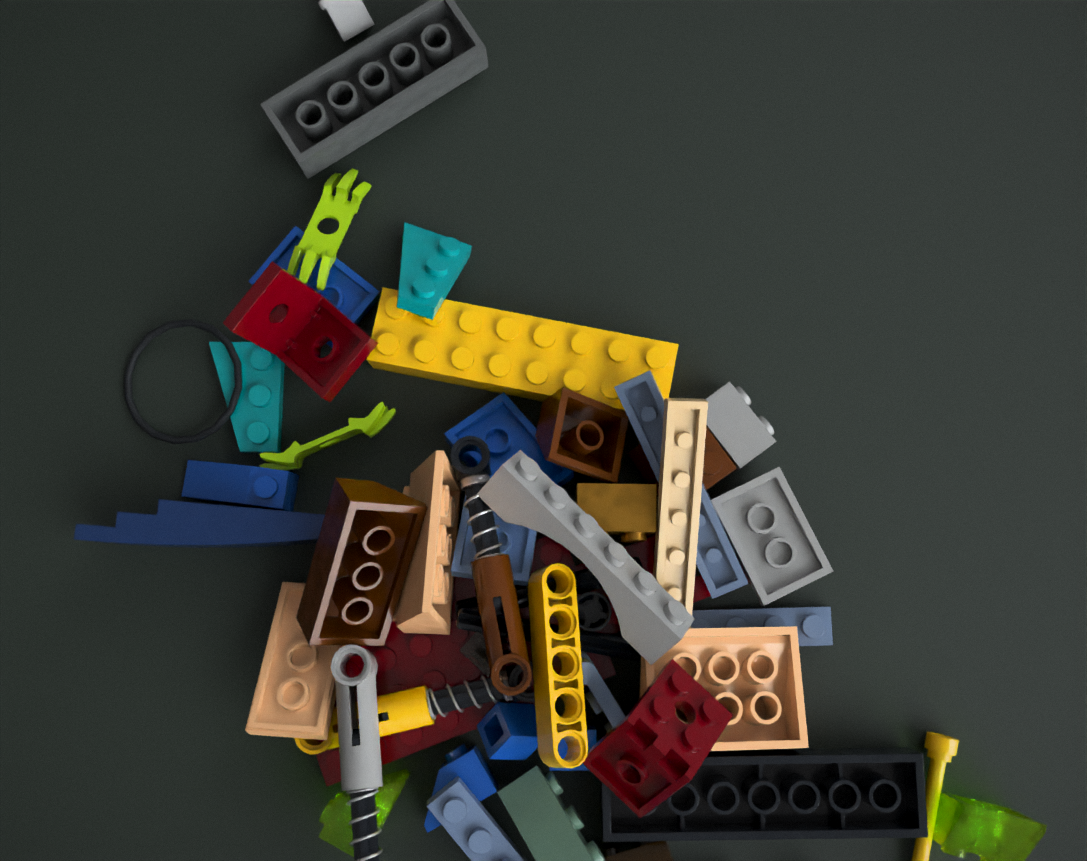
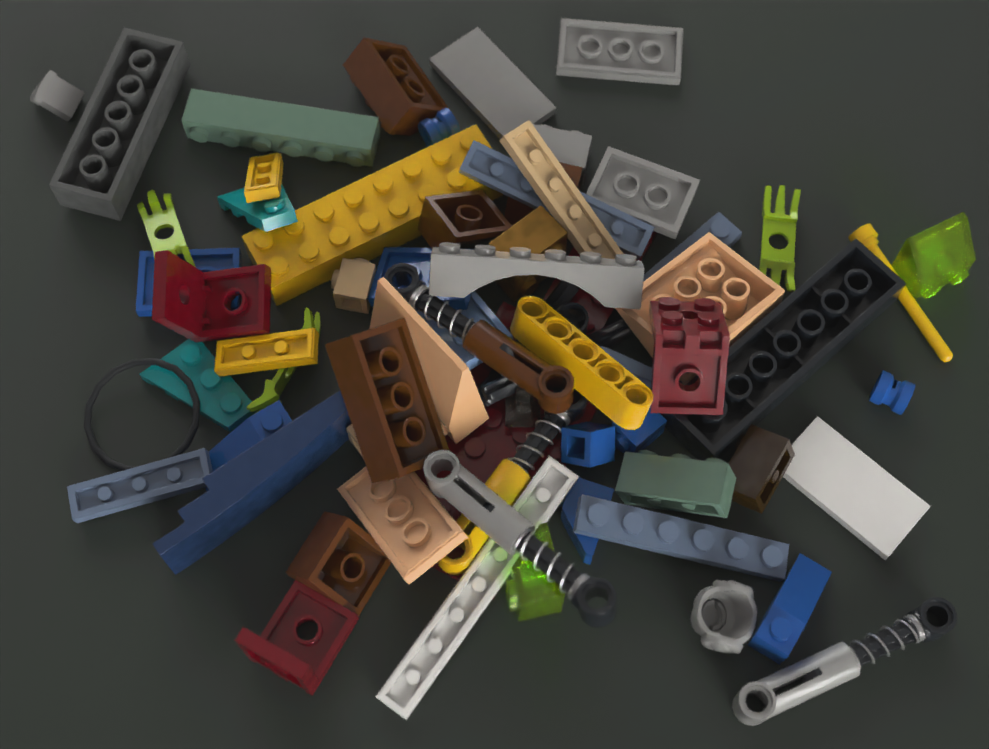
camera: 45 degrees left, 15 degrees down
(117, 696) = (288, 655): none -> dark red bracket
(130, 447) = (139, 485): none -> sand blue plate
(224, 650) = (340, 562): none -> reddish brown slope
(314, 773) = (471, 596): none -> white tile
(316, 417) = (266, 352): none -> yellow tile
(447, 405) = (353, 284): none -> tan brick
(448, 244) = (264, 177): none -> yellow tile
(512, 200) = (281, 127): none -> sand green brick
(646, 240) = (393, 85): none -> reddish brown slope
(649, 315) = (438, 128): none -> blue wheel
(737, 307) = (491, 84): none -> light grey tile
(878, 670) = (782, 225): none -> lime piece
(888, 367) = (620, 51): none -> light grey tile

